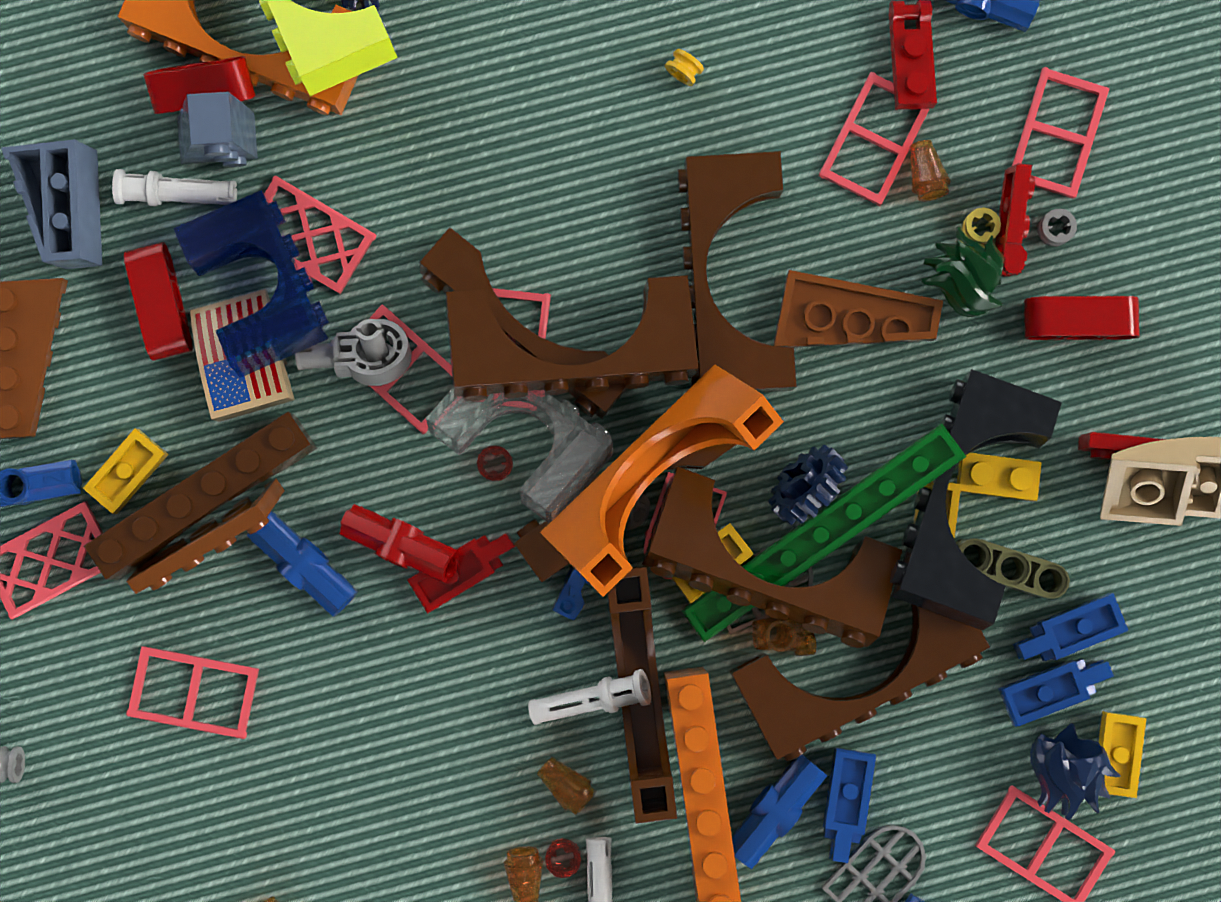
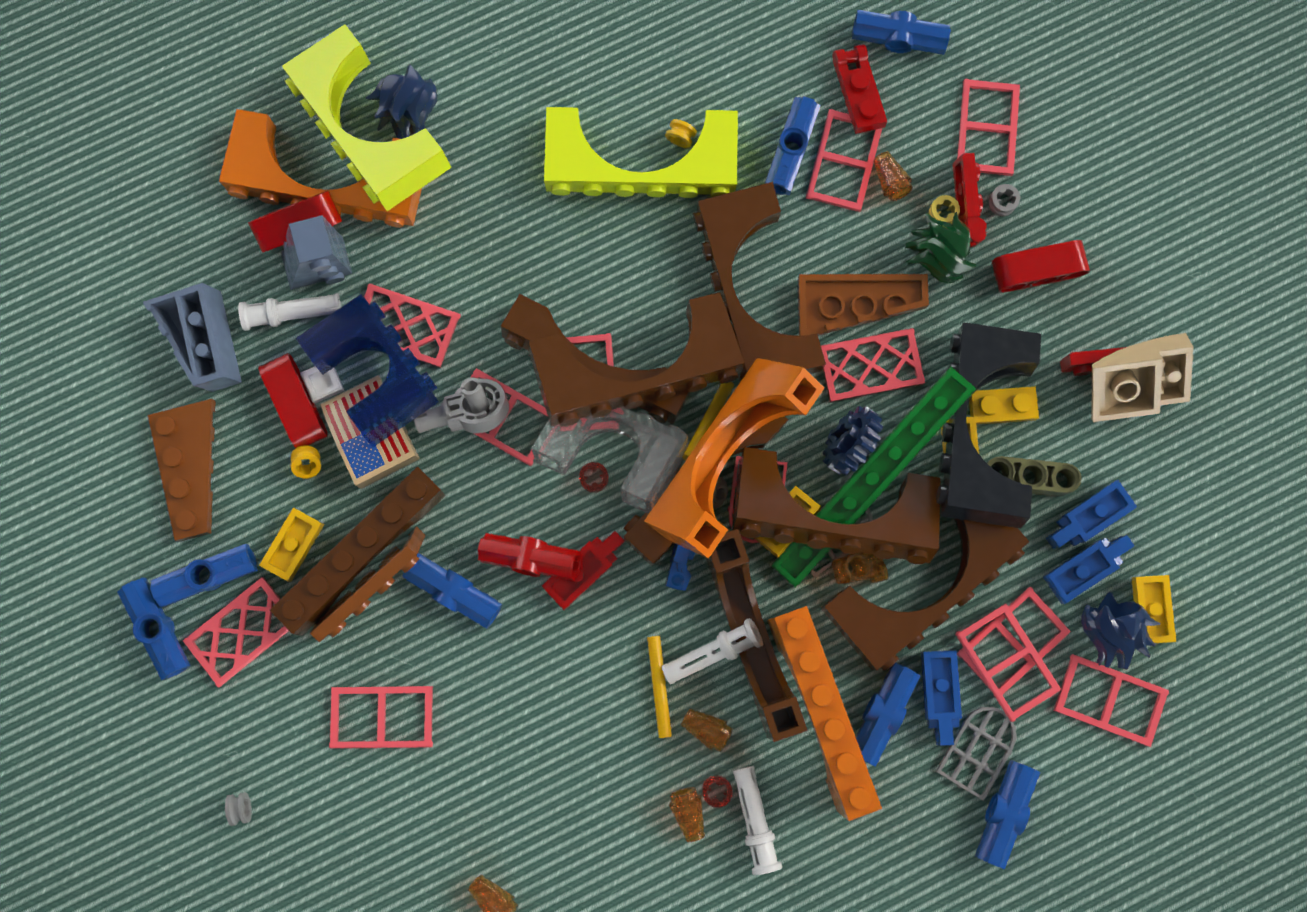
camera: 10 degrees left, 5 degrees down
(157, 386) = (305, 471): none -> yellow bush
(194, 288) = (321, 386): none -> white tile
(521, 724) = (659, 687): none -> yellow bar
(648, 417) = (714, 408): none -> yellow piece
(703, 118) = (576, 167): none -> neon yellow arch
(827, 90) = (797, 130): none -> blue piece
(873, 421) = (892, 383): none -> coral window
(961, 769) = (1028, 649): none -> coral window
(961, 783) = (996, 623): none -> coral window

